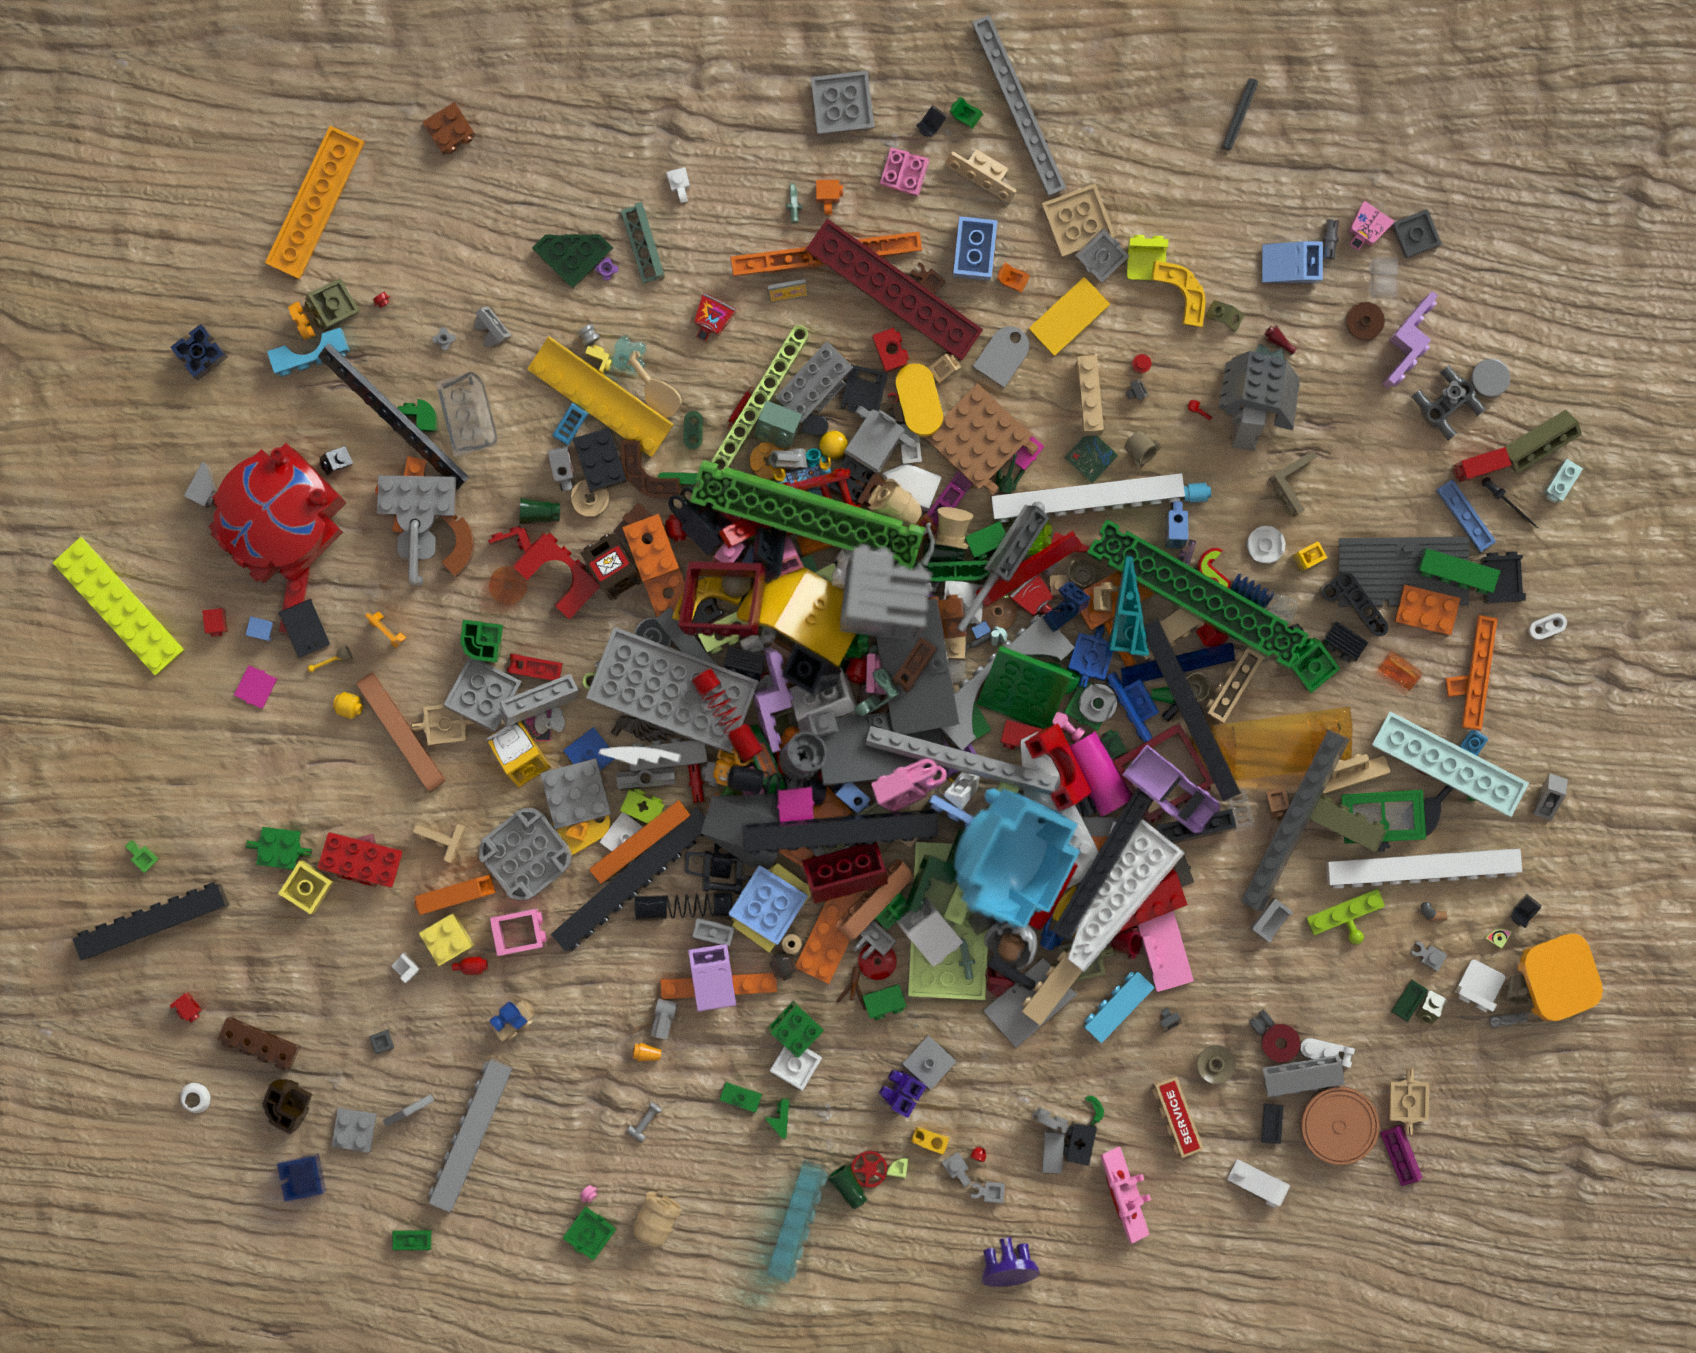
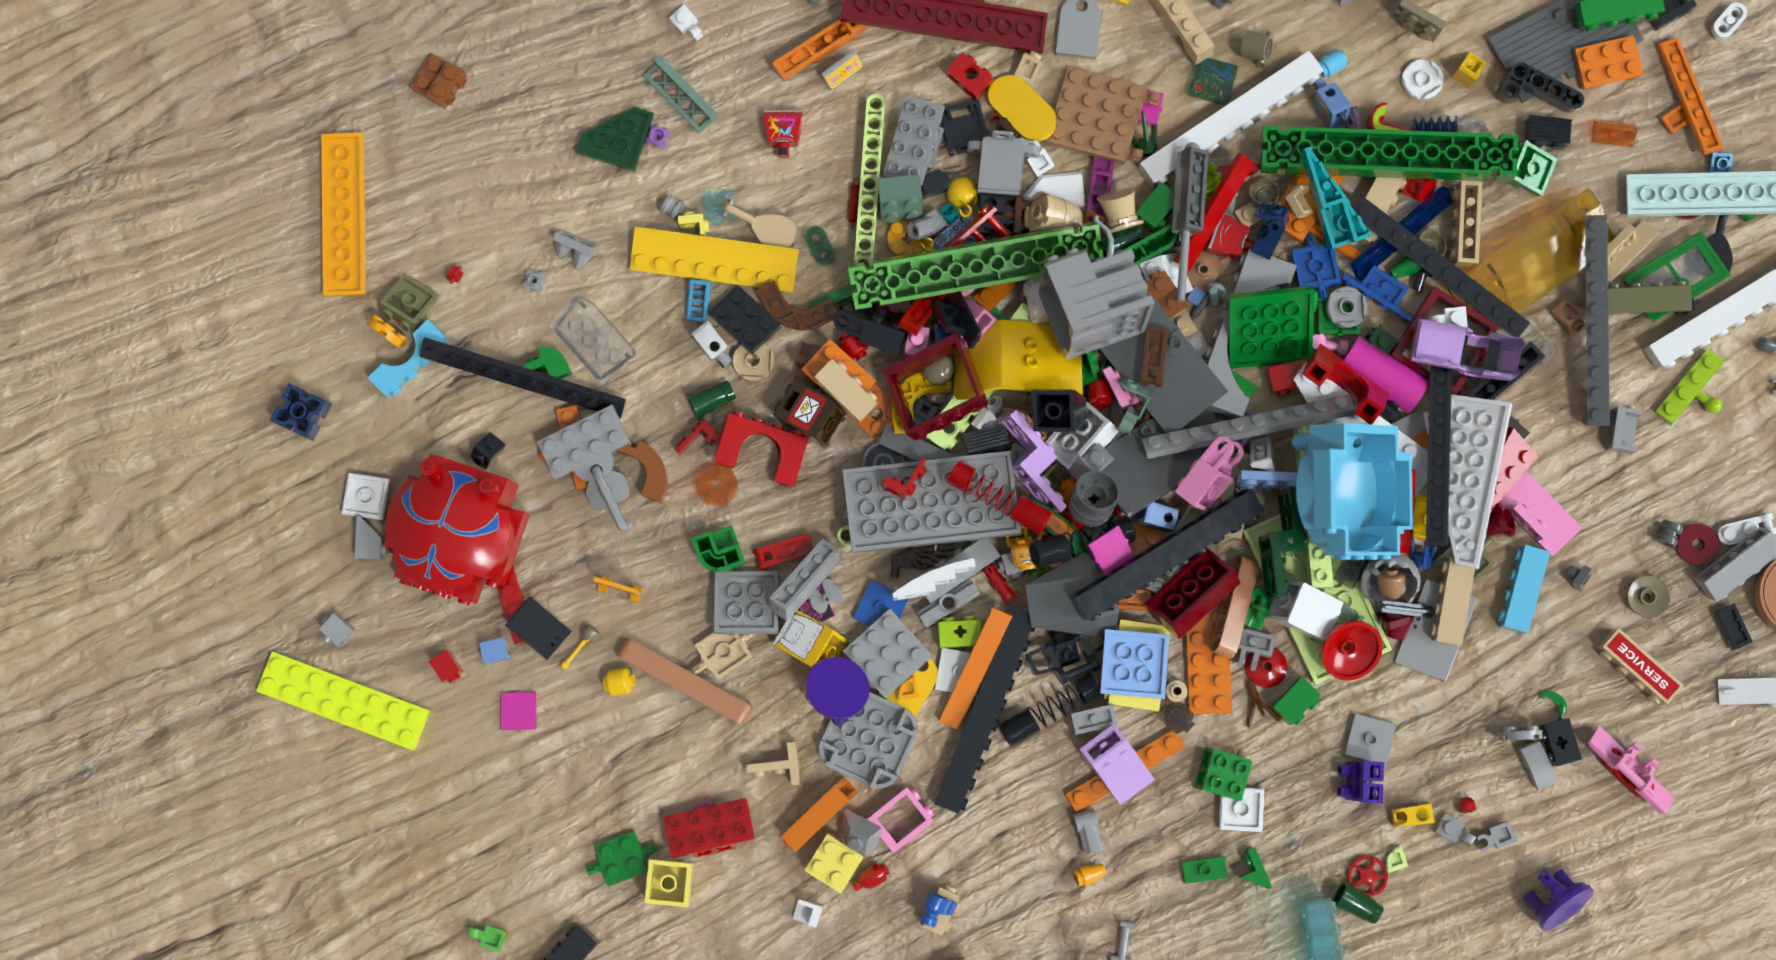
camera: 20 degrees left, 5 degrees down
(140, 546) = (336, 630): none -> light grey brick
(218, 448) = (366, 496): none -> white plate
(478, 926) = (859, 832): none -> light grey slope
(518, 802) = (837, 689): none -> dark purple piece
(648, 564) = (846, 390): none -> tan brick
(649, 664) = (896, 486): none -> red bracket
(949, 992) = (1358, 656): none -> red dish
(1178, 756) = (1453, 316): none -> white plate

